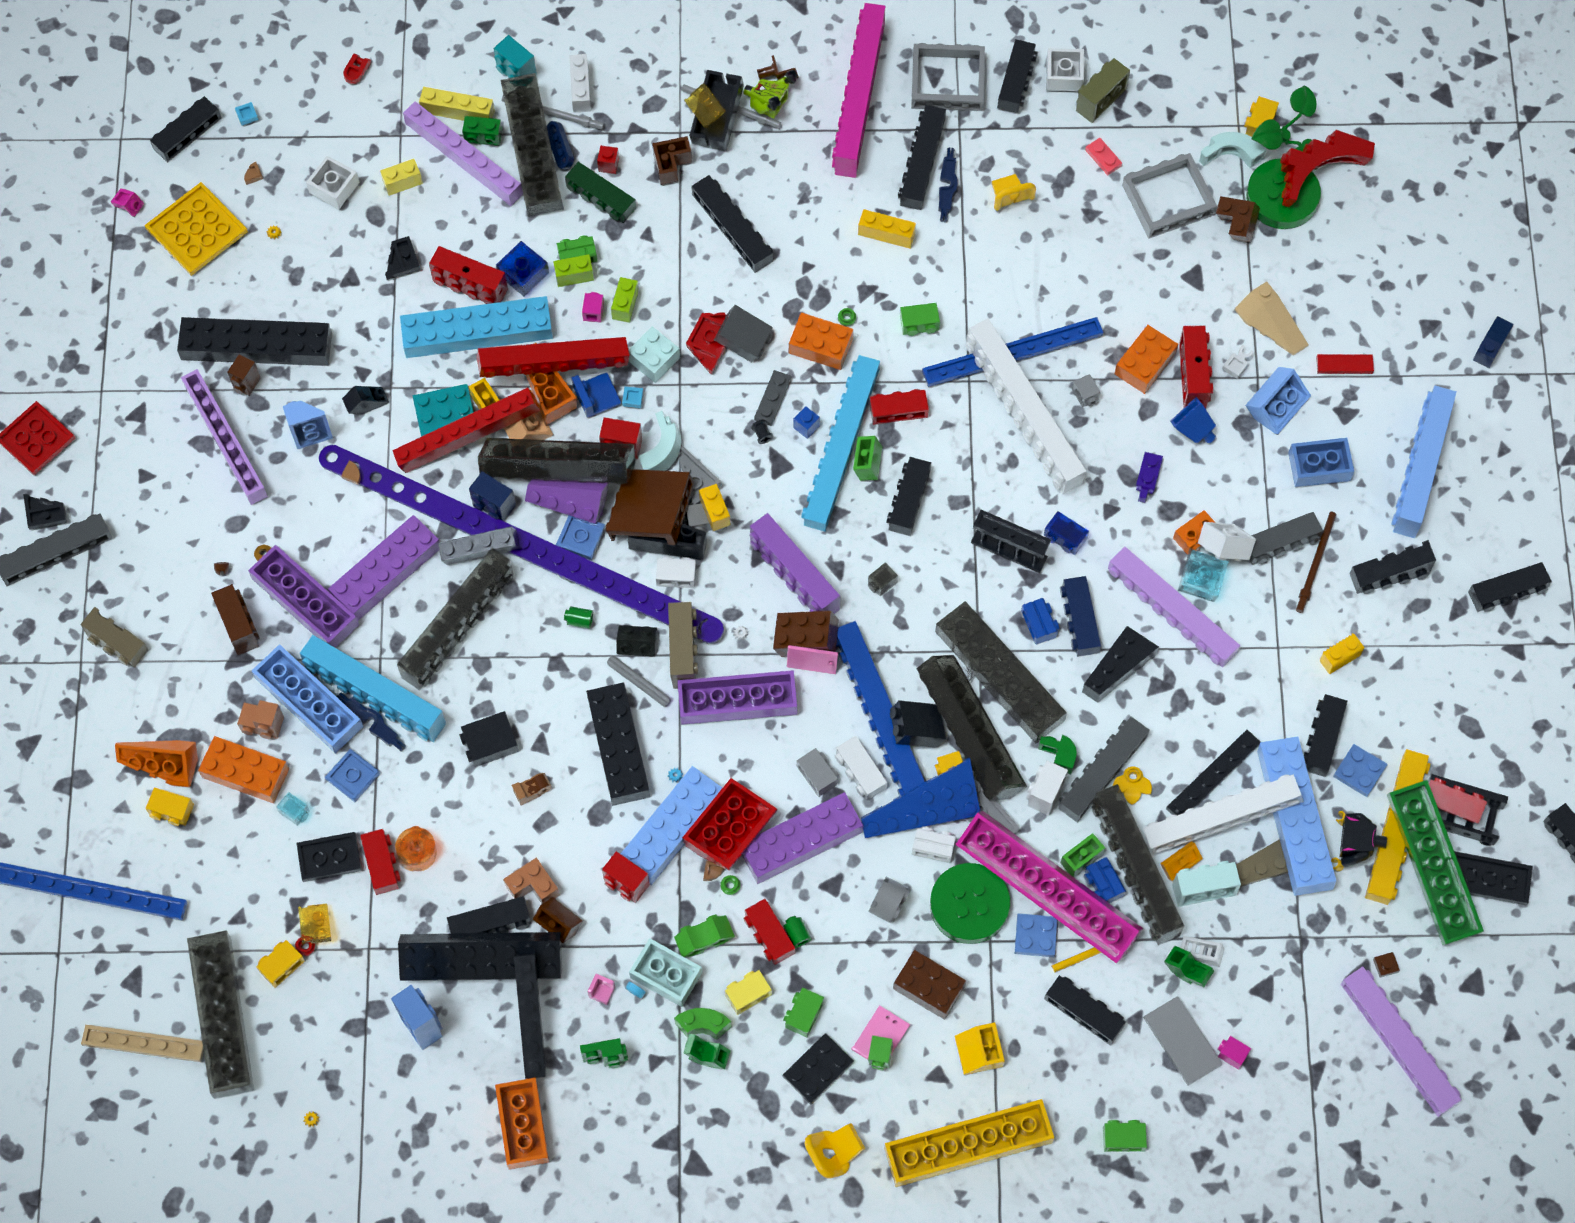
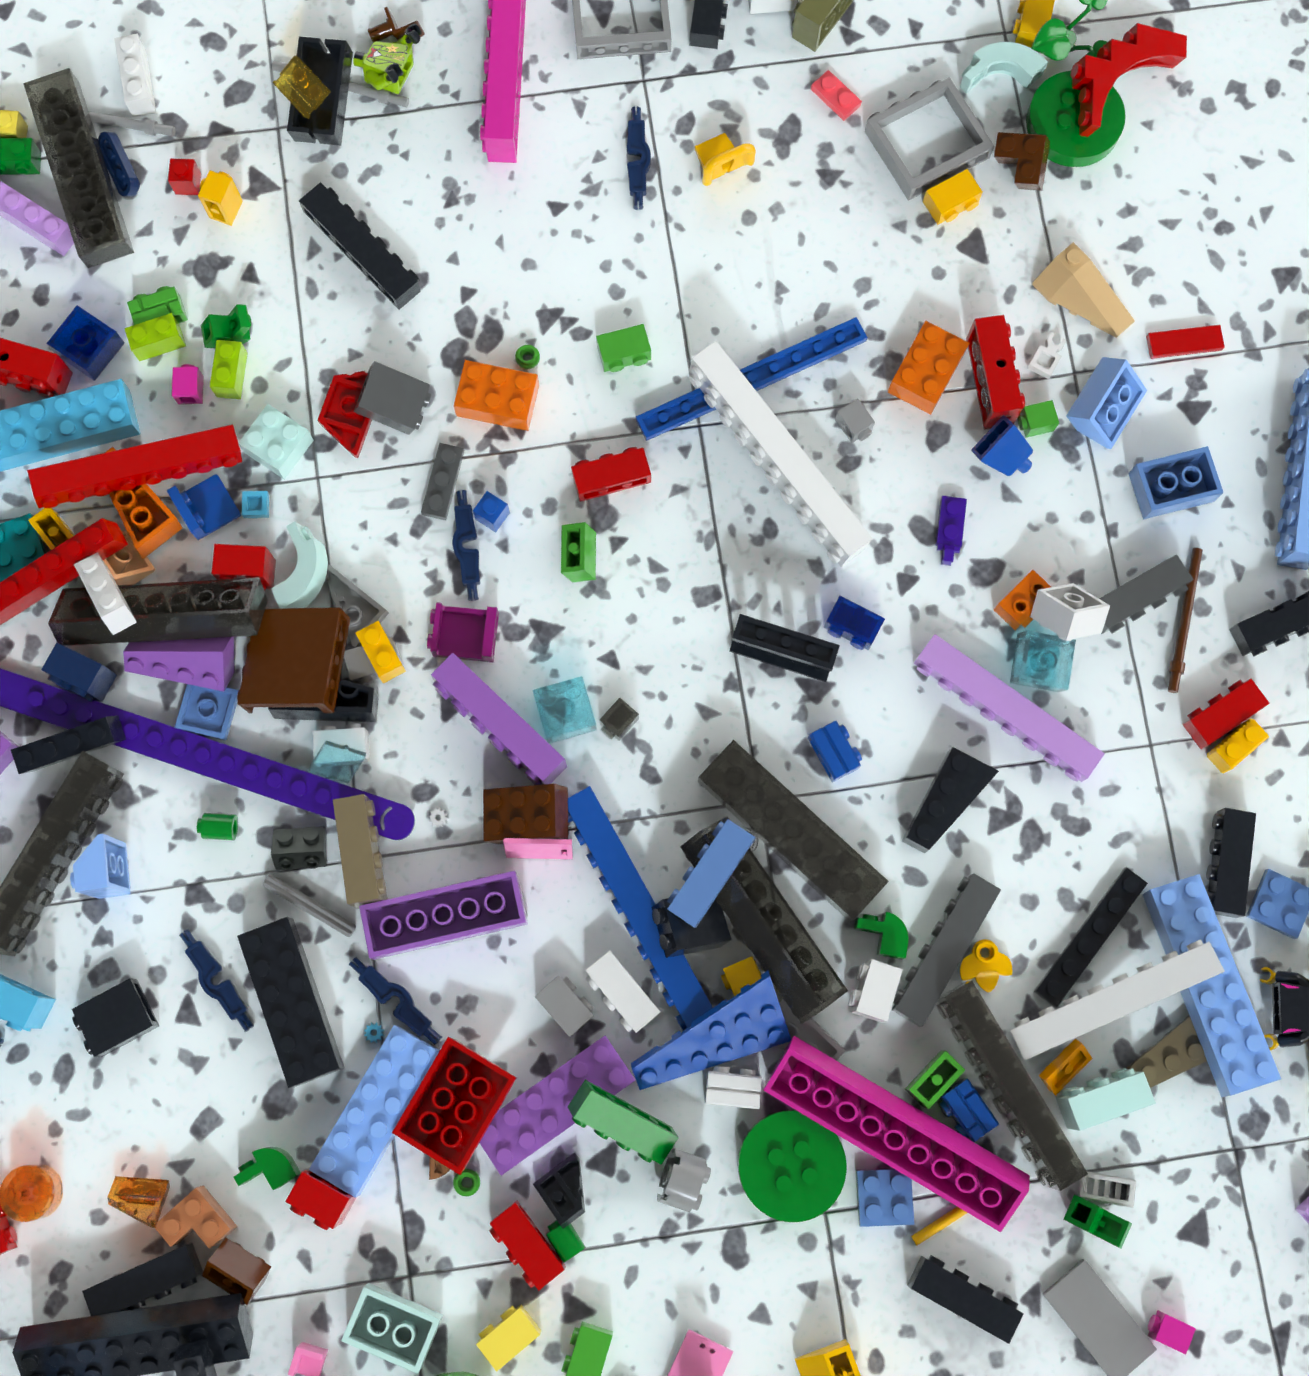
camera: 10 degrees left, 10 degrees up
(493, 862) = (139, 1198): none -> clear orange wing
(494, 633) = (102, 869): none -> light blue slope
(513, 58) = (39, 50): teal brick -> none
(523, 439) = (105, 593): none -> white brick
(531, 788) = (179, 1081): medium nougat leg -> none
(569, 732) = (224, 992): none -> dark blue piece
(590, 851) = (275, 1165): none -> green brick
(600, 192) = (179, 223): dark green brick -> none
(627, 269) = (227, 327): none -> green brick
(633, 177) = (220, 197): none -> yellow brick
(635, 990) = (354, 1355): medium azure tile -> none
(669, 155) = (264, 161): reddish brown brick -> none
(672, 581) = (337, 762): none -> clear light blue piece
(687, 747) = (405, 1010): none -> dark blue piece
(707, 934) = (439, 1265): bright green brick -> none
(762, 432) = (434, 531): black bush -> none
(778, 503) = (464, 632): none -> magenta panel
(784, 453) = (464, 533): none -> dark blue piece
(800, 897) = (563, 1190): none -> black wing
(841, 444) = (541, 535): medium azure brick -> none
(844, 566) = (565, 710): none -> clear light blue brick
(850, 851) = (622, 1122): none -> brick
(886, 228) = (565, 228): yellow brick -> none
(909, 496) = (640, 597): black brick -> none
(922, 157) = (601, 123): black brick -> none
(929, 984) = (752, 1293): reddish brown brick -> none
(936, 683) = (711, 872): none -> medium blue brick
(1081, 616) = (888, 737): dark blue brick -> none
(1181, 239) = (952, 197): none -> yellow brick
(1224, 405) = (1038, 419): none -> bright green brick
(1335, 628) = (1225, 712): none -> red brick

